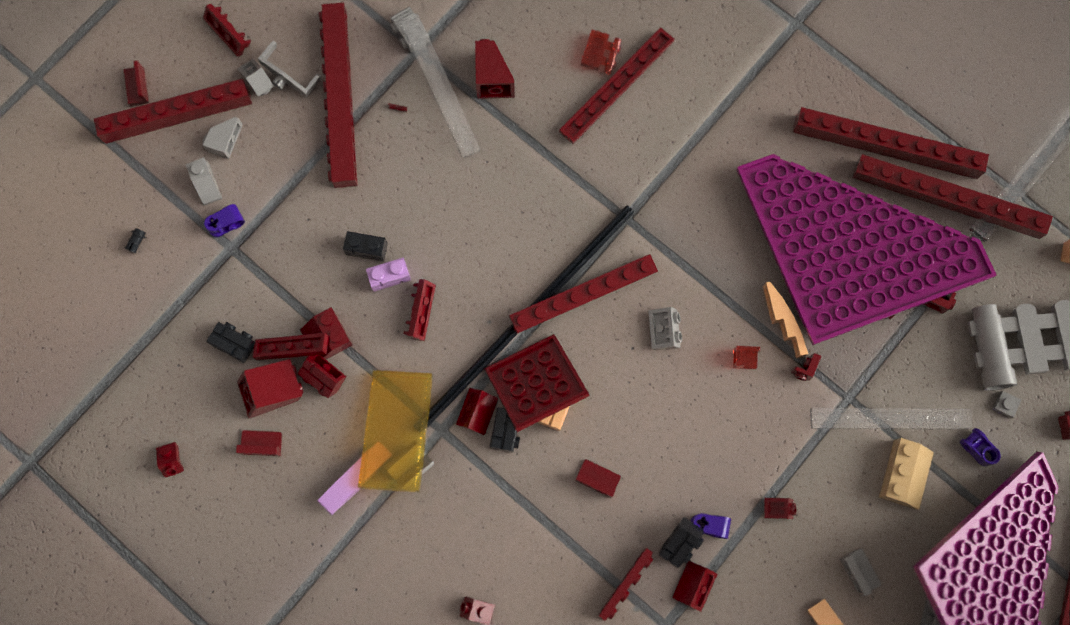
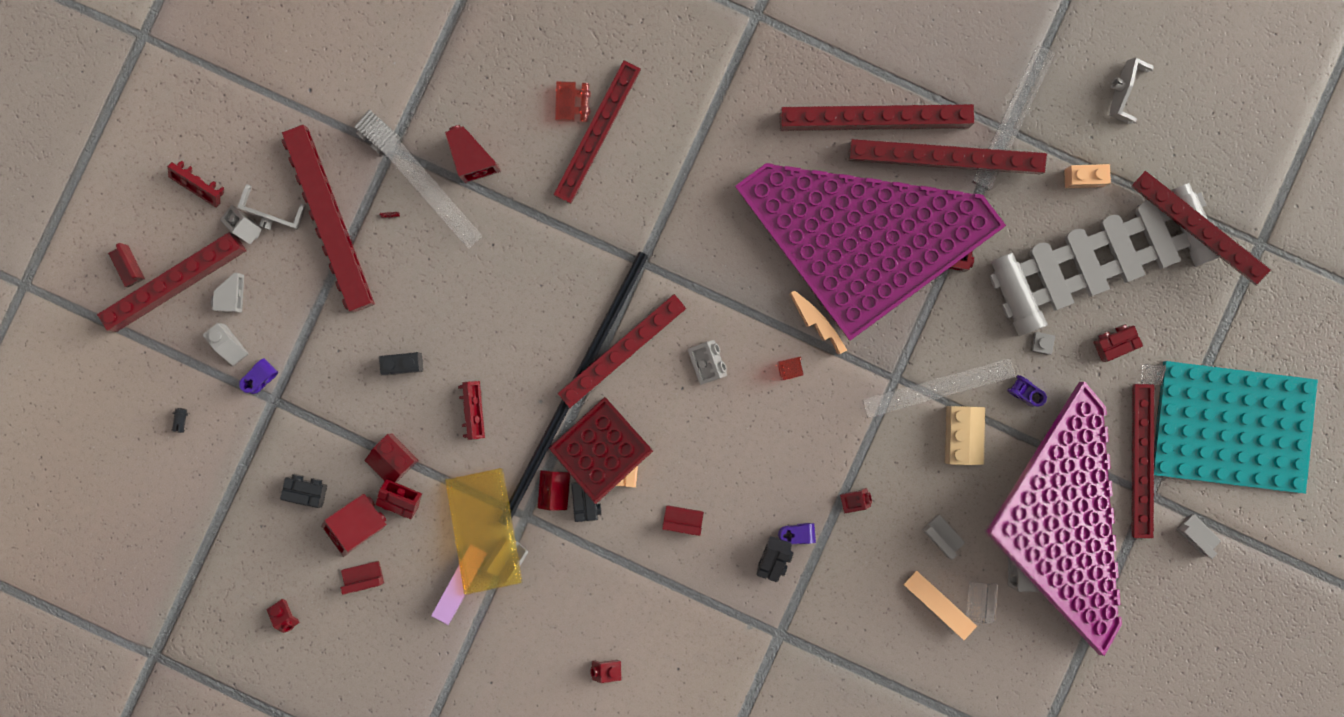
camera: 20 degrees left, 10 degrees up
(290, 346) = (361, 481): dark red plate -> none
(388, 274) = (431, 385): lavender brick -> none
(621, 592) = (737, 602): dark red plate -> none
(694, 586) = (796, 592): dark red panel -> none
(810, 365) = (852, 359): dark red bracket -> none

